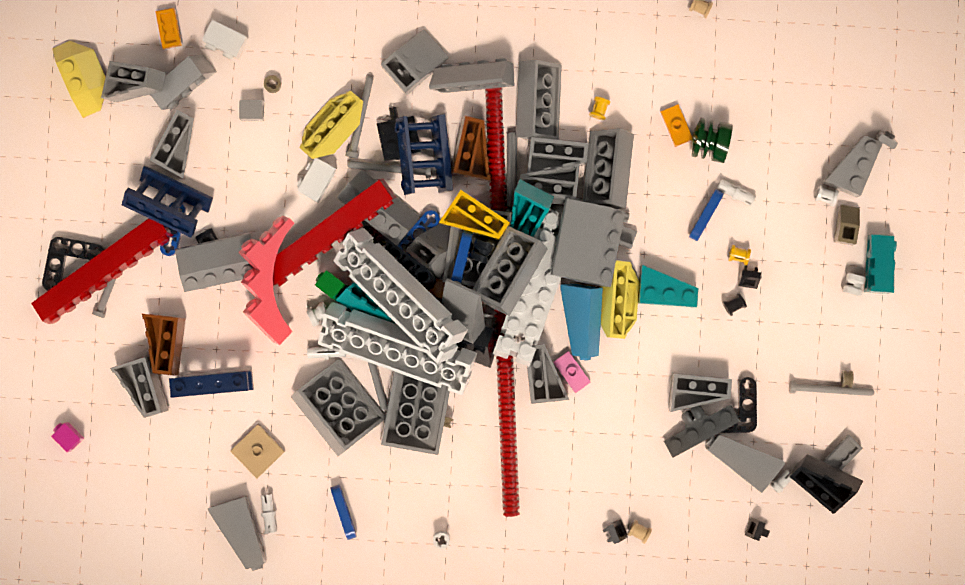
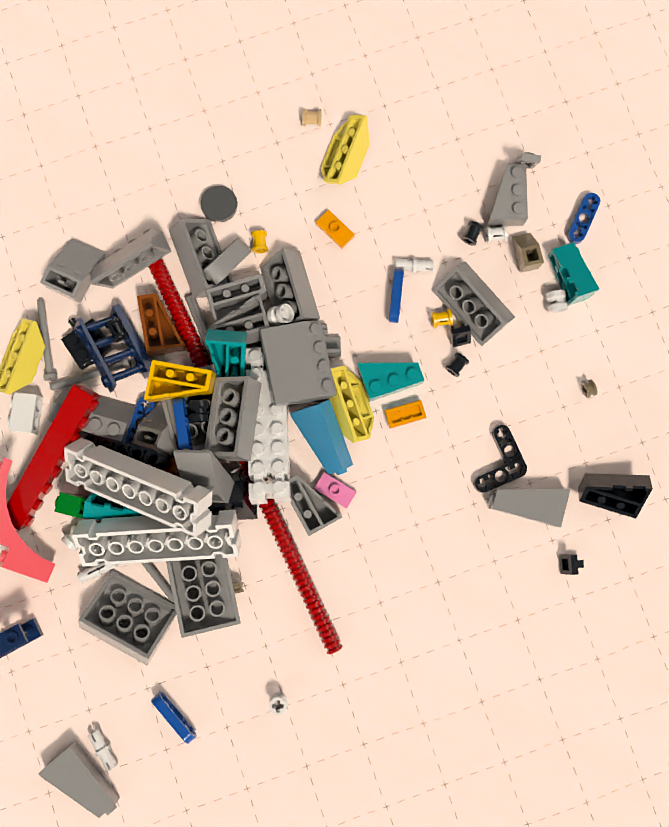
camera: 25 degrees left, 5 degrees down
(257, 451) = (69, 693): tan plate -> none
(431, 136) = (117, 330): none -> black bush
(562, 116) = (227, 260): none -> light grey beam
(576, 54) = (219, 204): none -> dark grey tile
(590, 190) = (280, 314): none -> white wheel
(617, 532) = (440, 623): black tile -> none
(639, 531) = (462, 613): tan bush -> none
(666, 329) = (405, 414): none -> light orange plate
(693, 391) = (458, 457): light grey wedge -> none
(700, 428) = (476, 491): dark grey plate -> none
(711, 140) = (372, 226): dark green wheel -> none
(718, 56) = (346, 151): none -> light yellow wedge
(775, 253) = (473, 303): none -> light grey slope
(780, 483) = (572, 509): white pin -> none
(793, 387) = (545, 416): light grey bar -> none
(804, 185) = (472, 233): none -> black bush
(843, 453) = (617, 457): light grey plate -> none
(923, 202) = (589, 213): none -> blue beam

